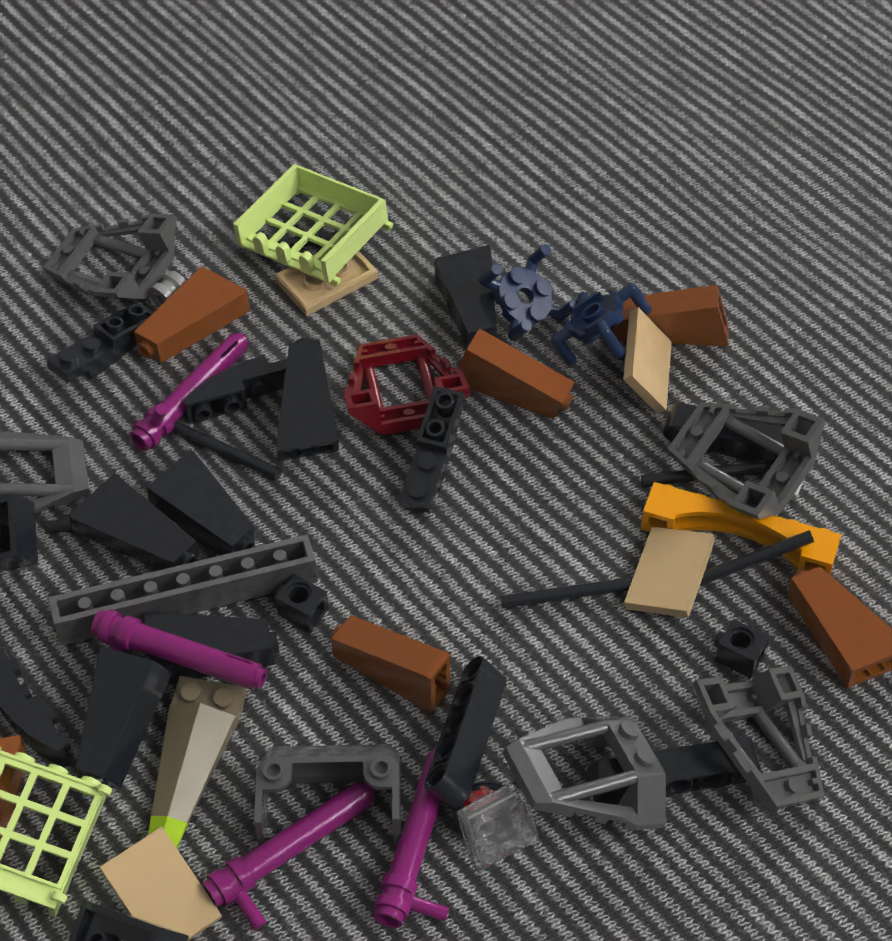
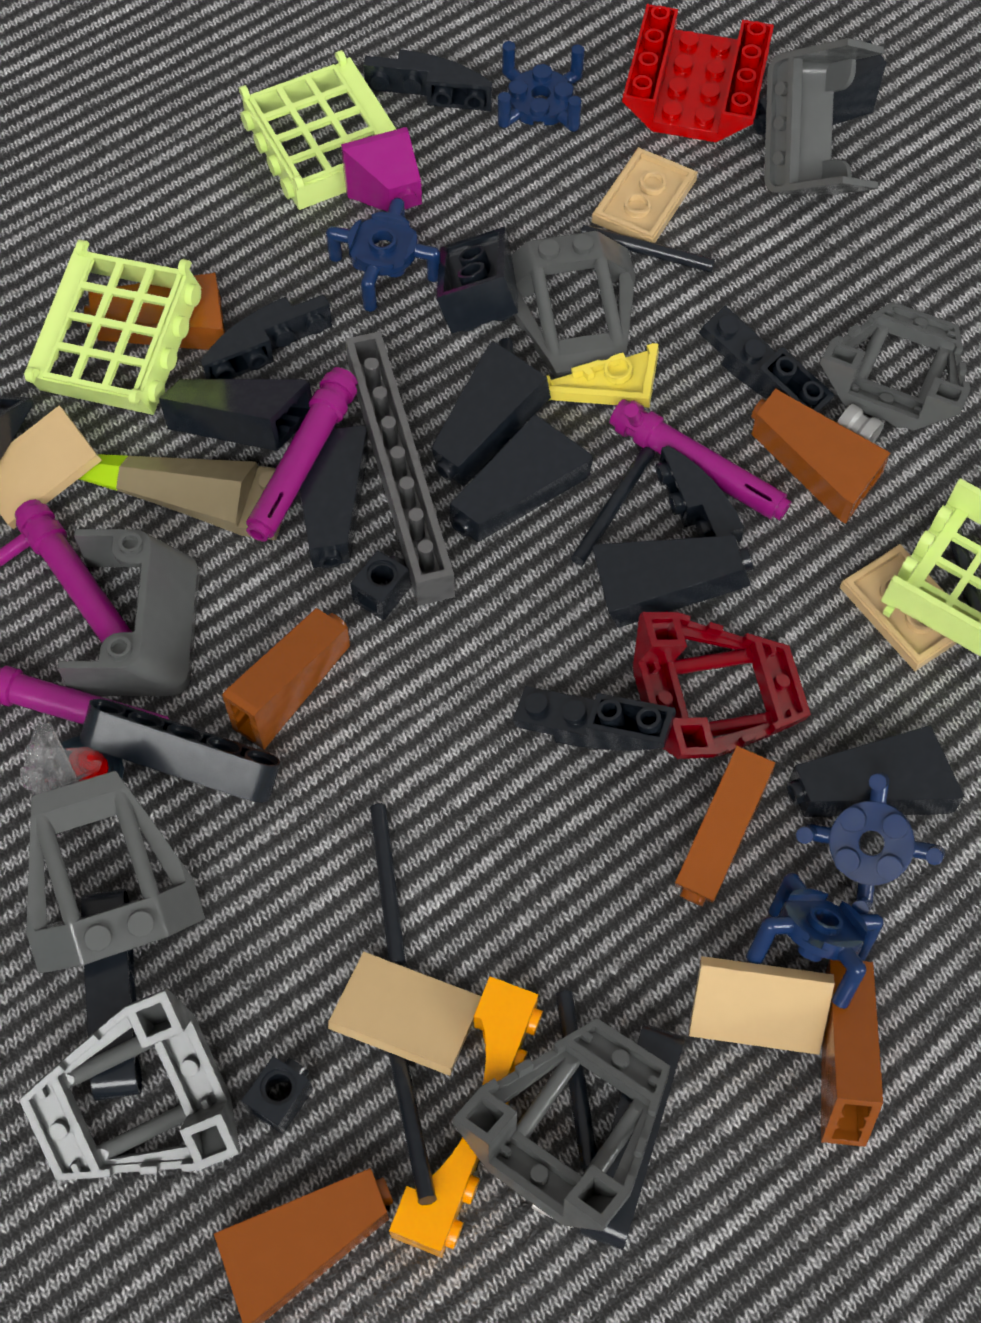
camera: 90 degrees right, 10 degrees up
(104, 441) = (609, 380): none -> light yellow wing

